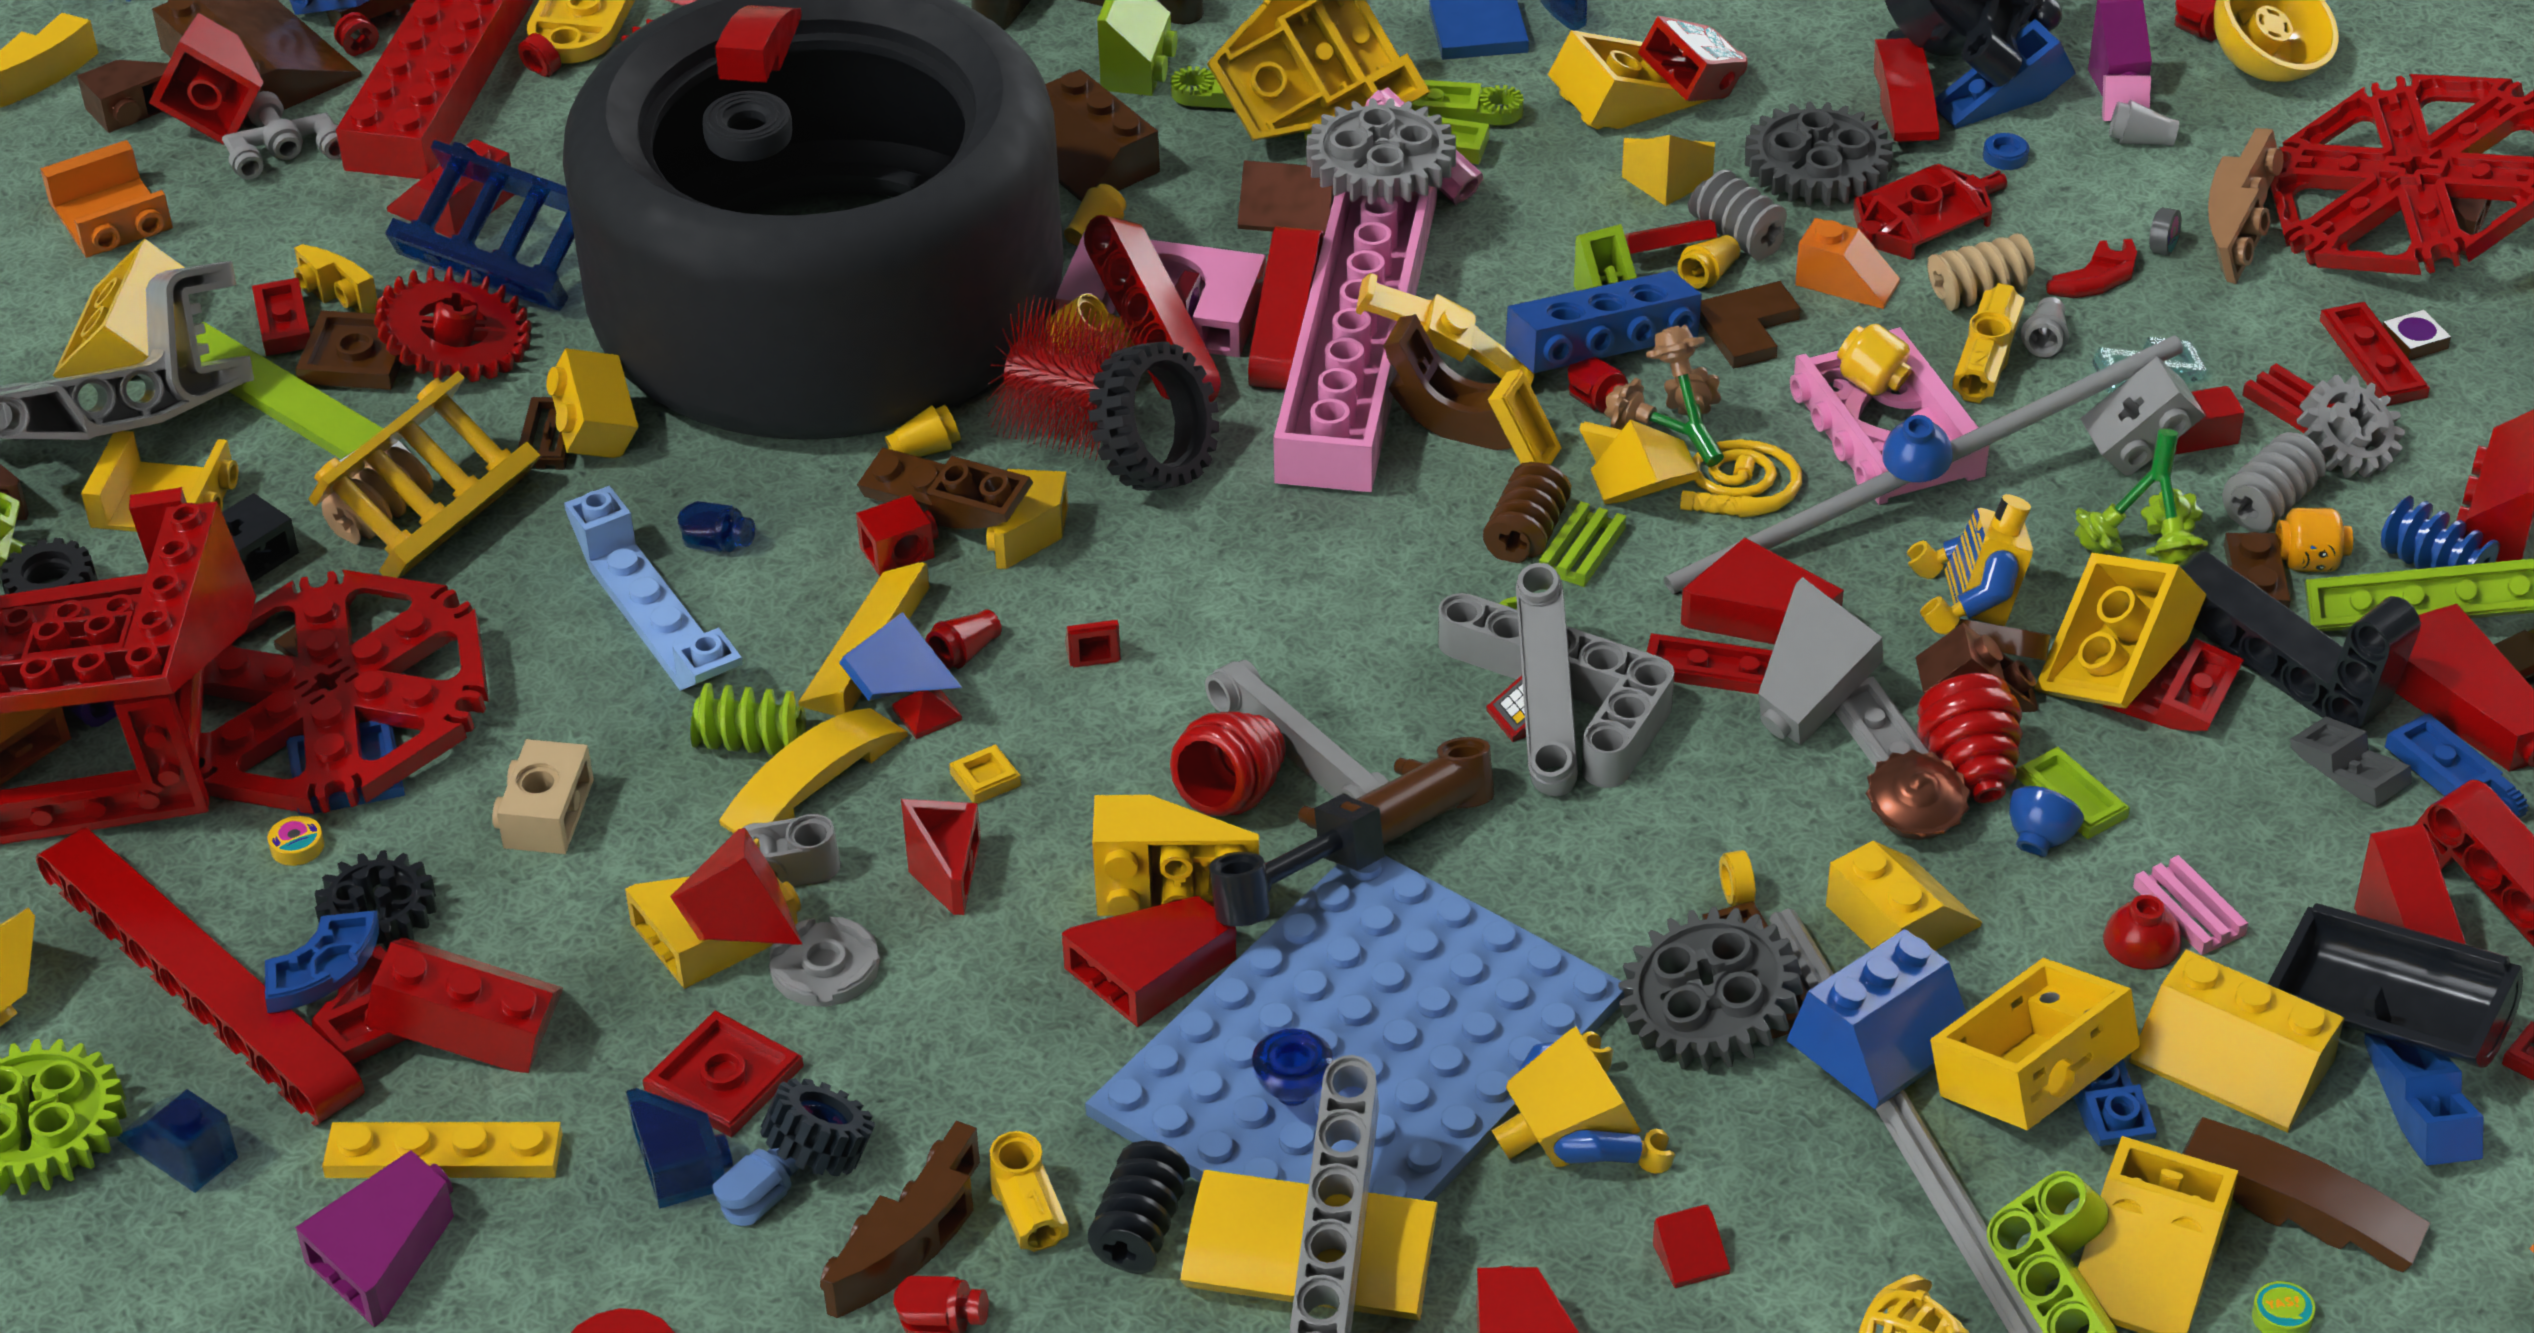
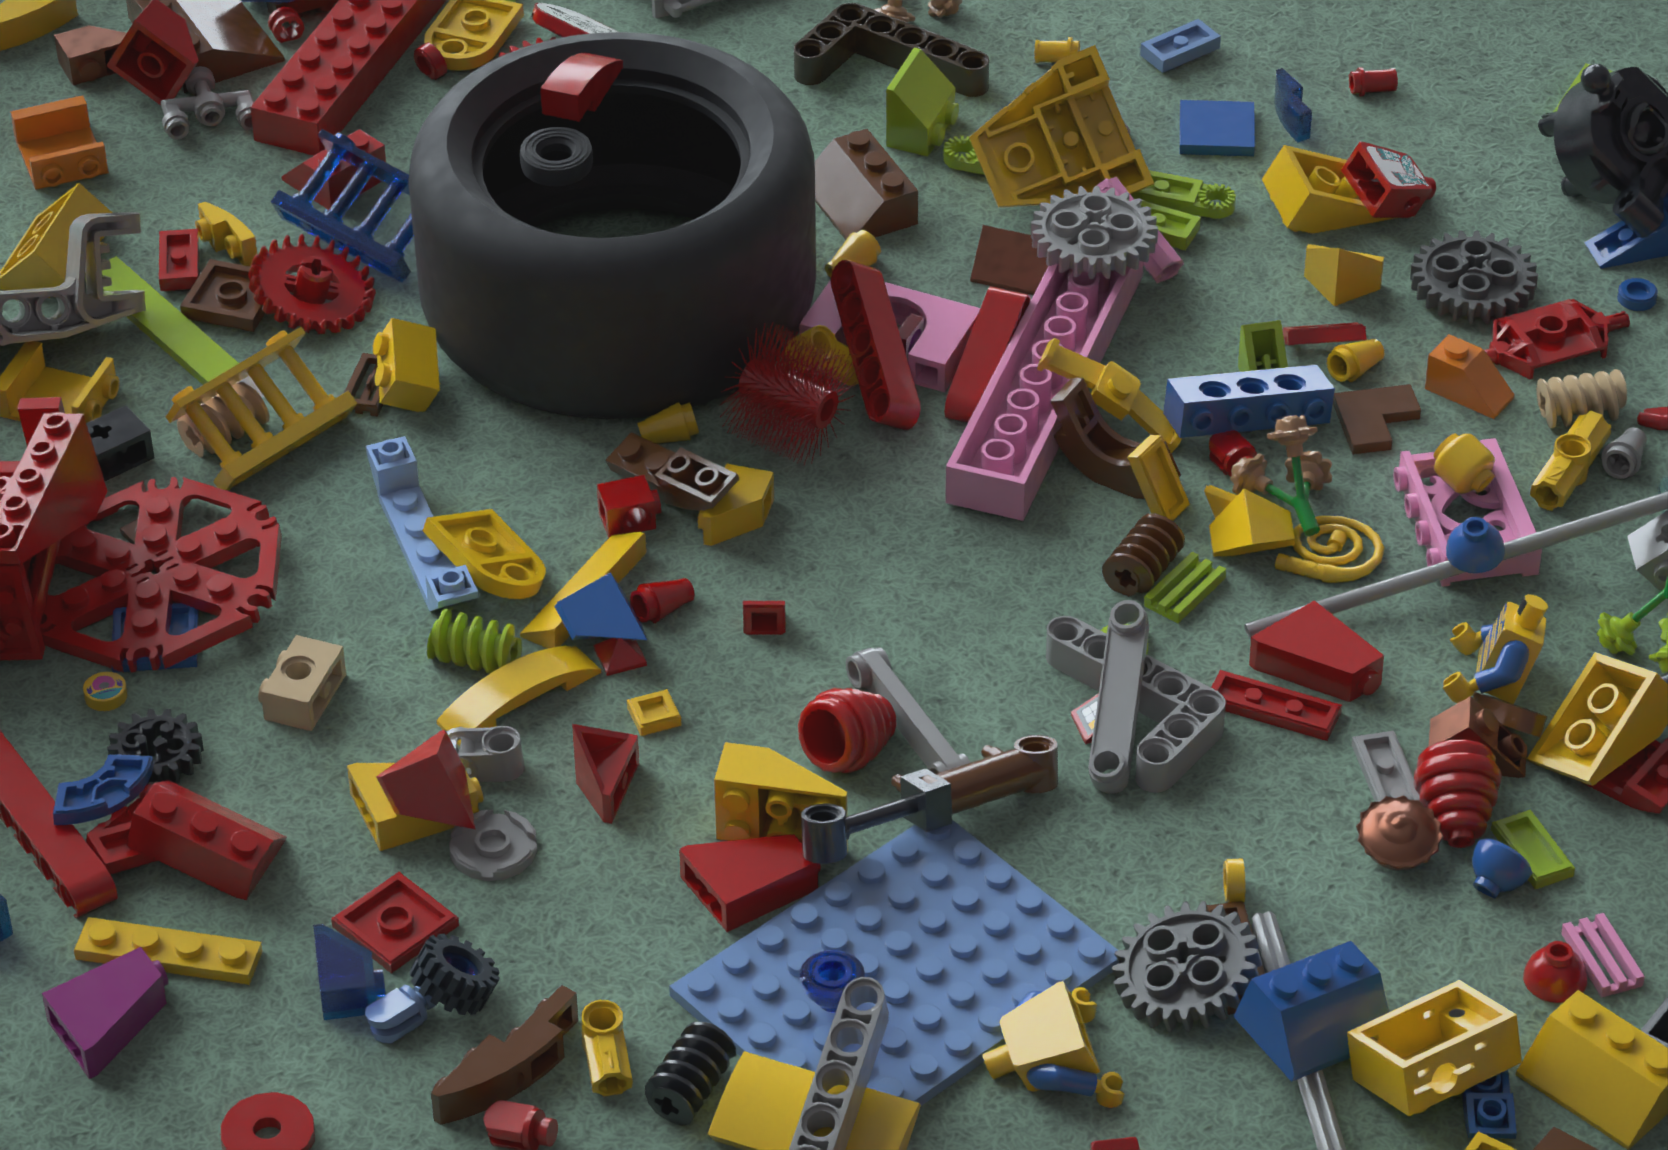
camera: 10 degrees right, 0 degrees up
(715, 527) = (484, 480): clear blue arm -> none
(743, 606) = (490, 550): none -> yellow plate
(1118, 425) = (819, 441): black tyre -> none
(1740, 213) = (1391, 322): light grey piece -> none
(1814, 663) = (1341, 714): light grey slope -> none
(1888, 891) = (1359, 909): yellow slope -> none
(1905, 90) = (1563, 231): red slope -> none

